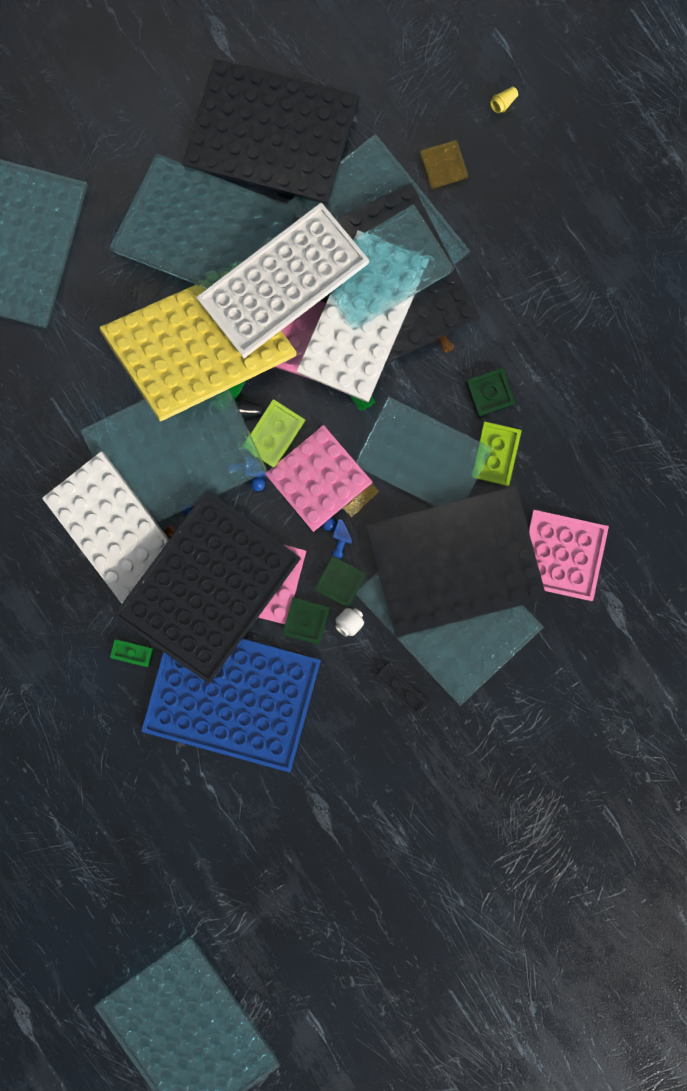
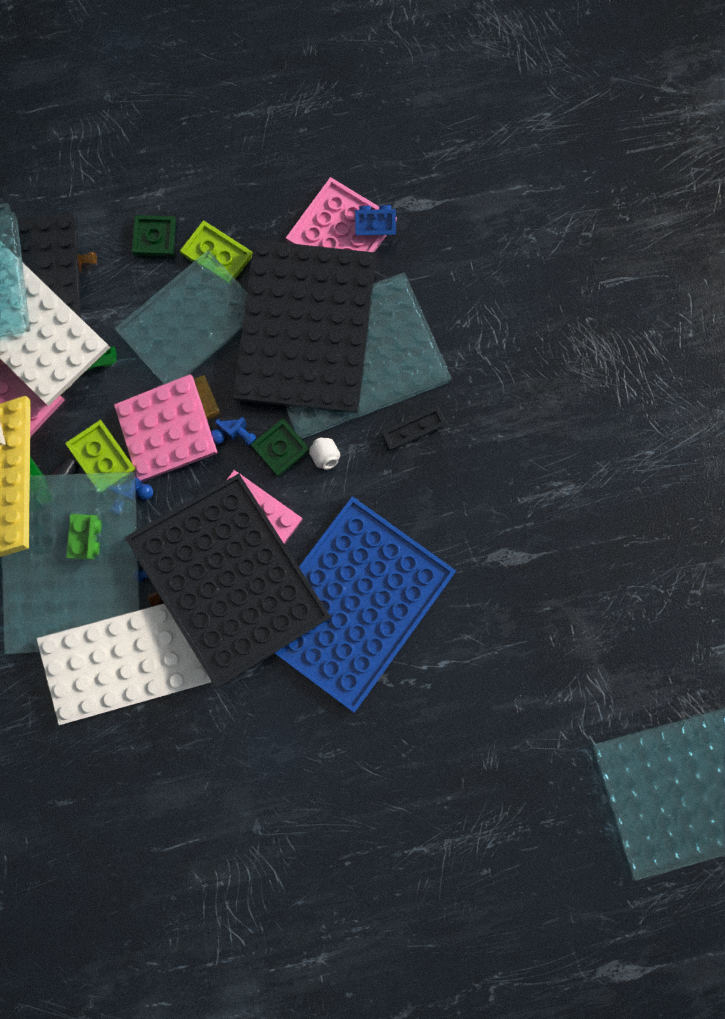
camera: 70 degrees left, 10 degrees down
(131, 653) = (266, 692): green plate -> none
(195, 453) = (83, 536): none -> bright green bracket
(306, 621) = (306, 496): dark green plate -> none
(579, 584) = (375, 221): none -> blue bracket

